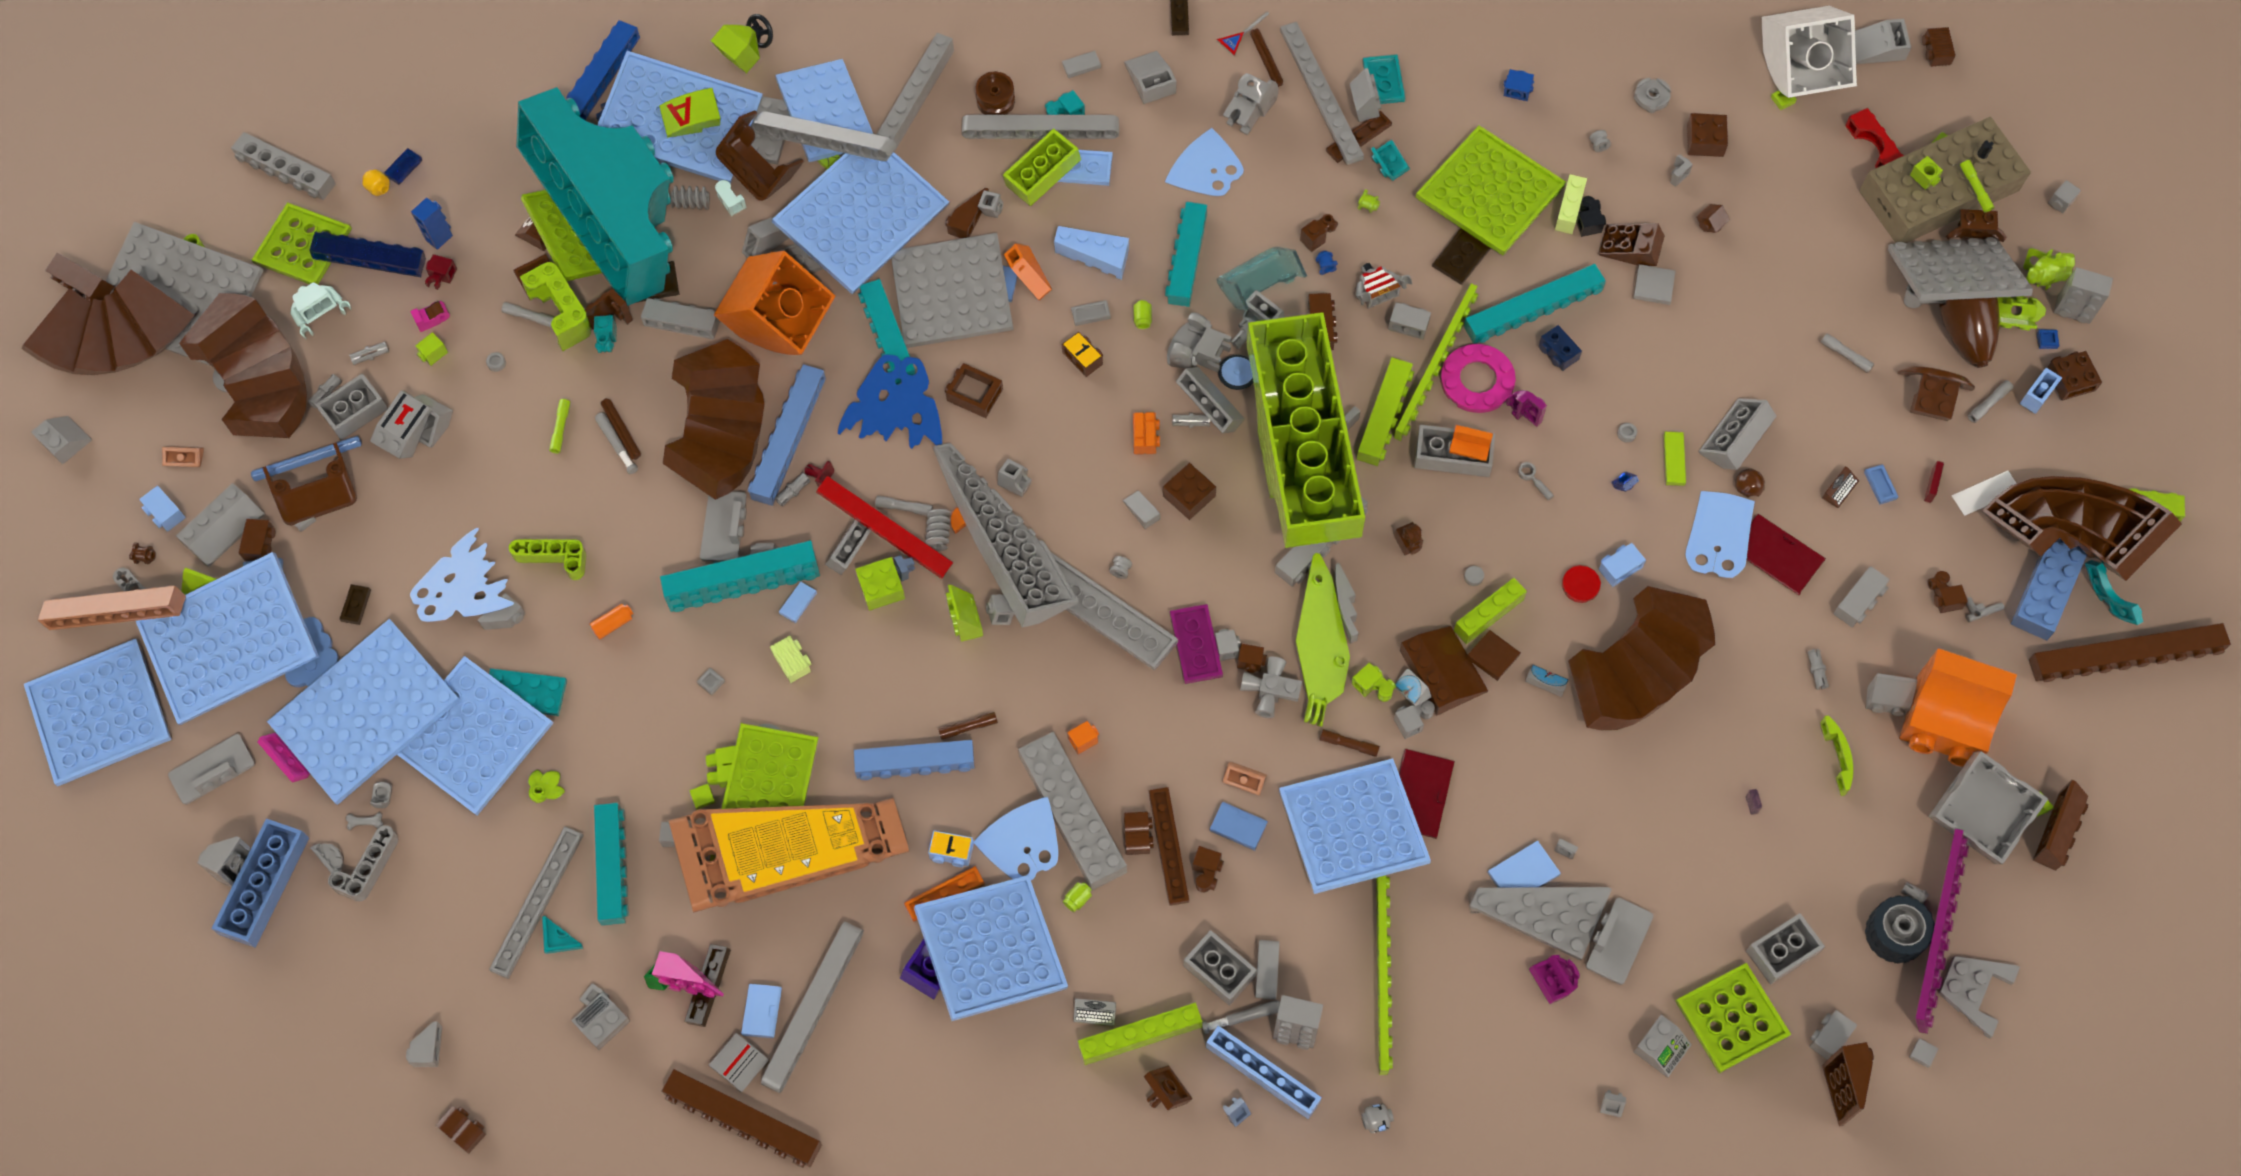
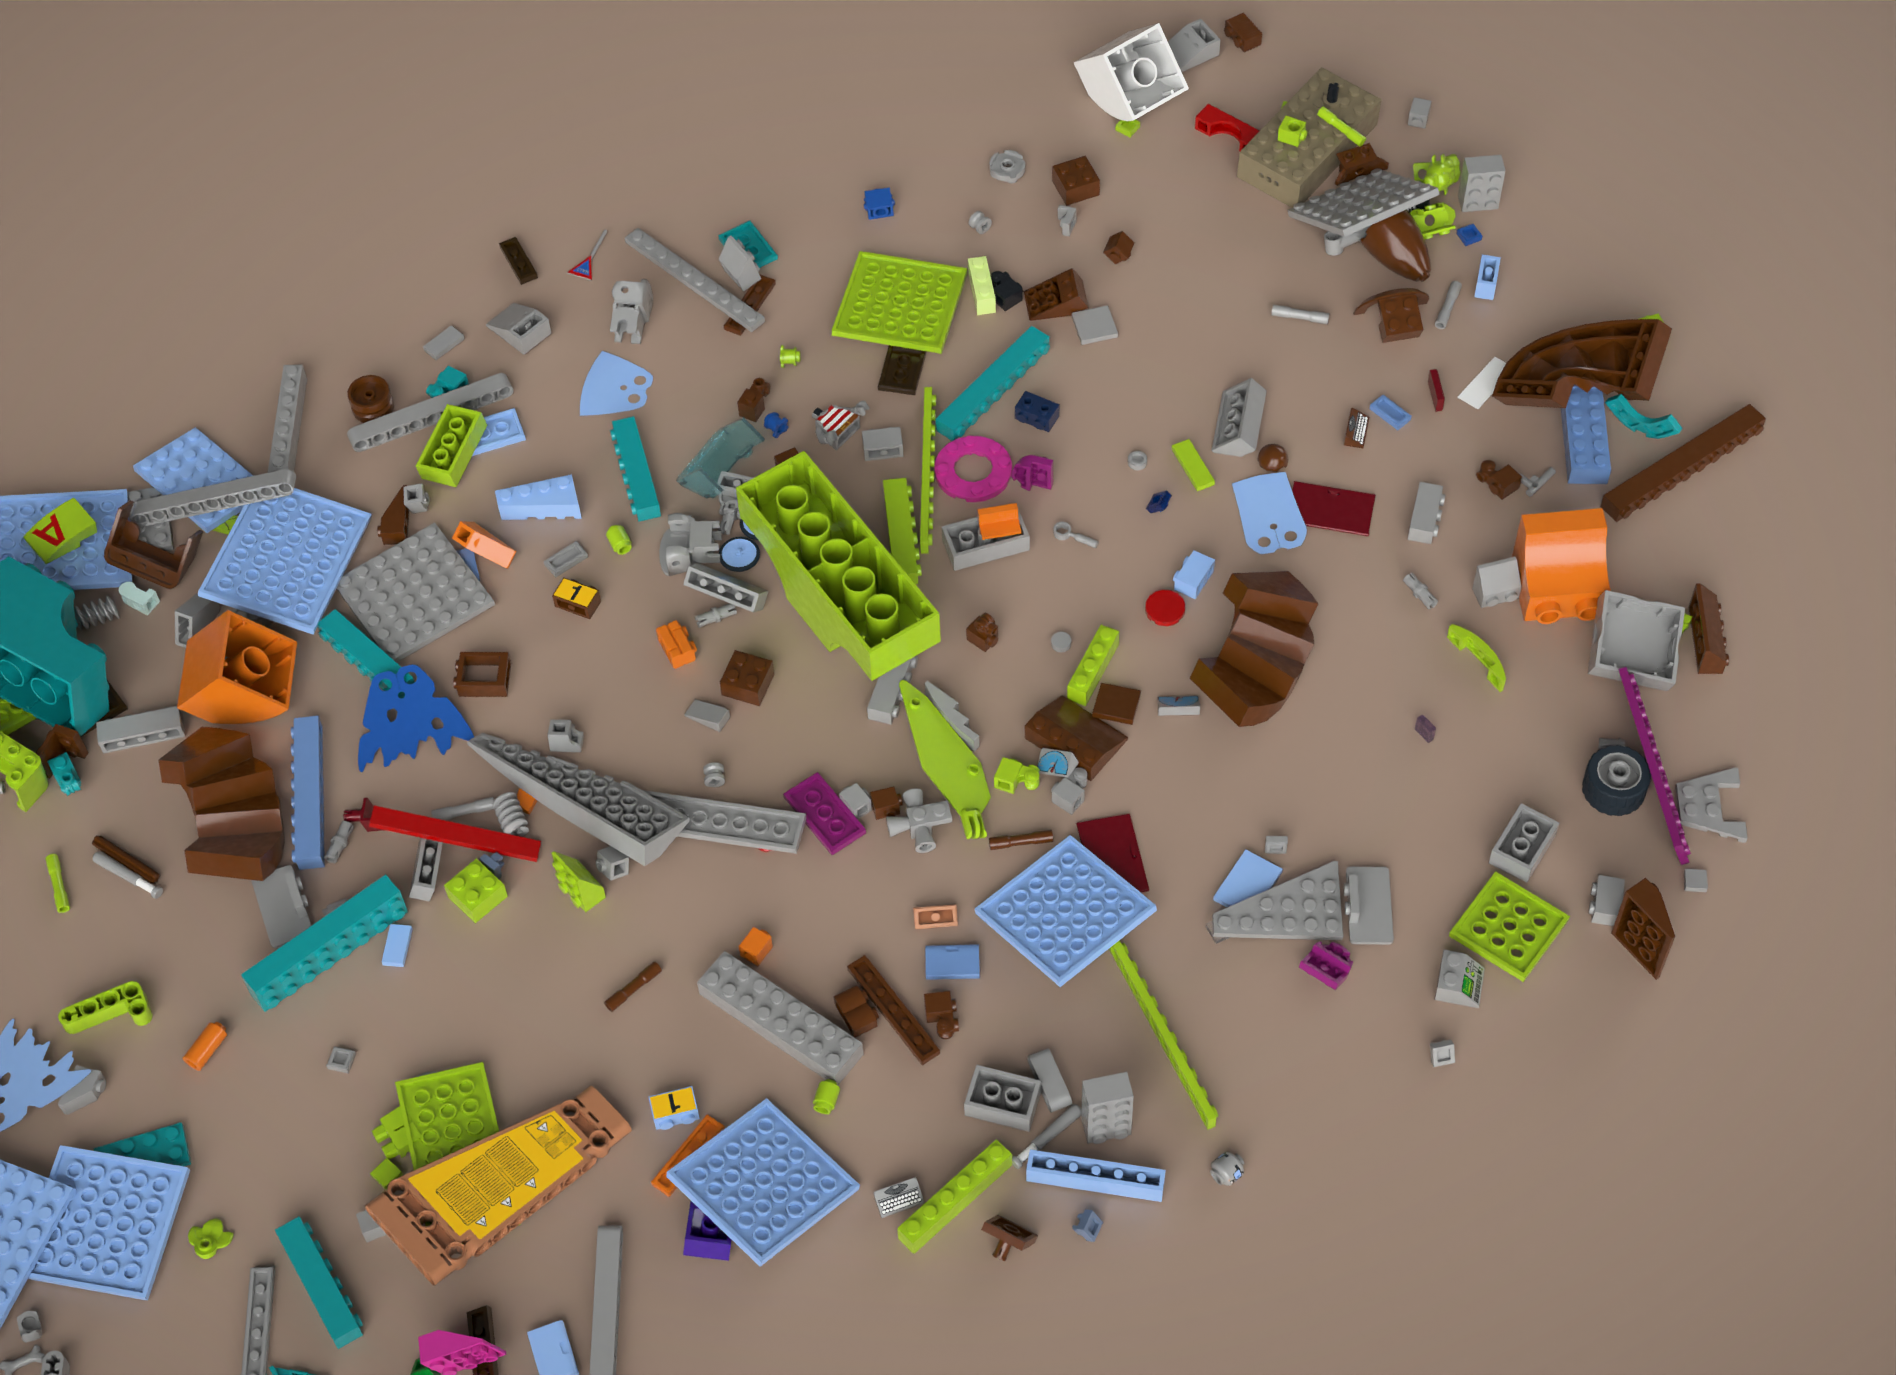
camera: 25 degrees left, 10 degrees down
(742, 42) = (81, 449): lime piece -> none
(790, 658) = (416, 1000): yellowish green brick -> none
(914, 759) = (593, 1040): medium blue brick -> none
(1023, 827) = (737, 1055): light blue piece -> none
(1266, 56) = (620, 266): reddish brown axle -> none
(1391, 160) = (792, 312): teal bracket -> none
(2077, 375) = (1513, 250): reddish brown brick -> none

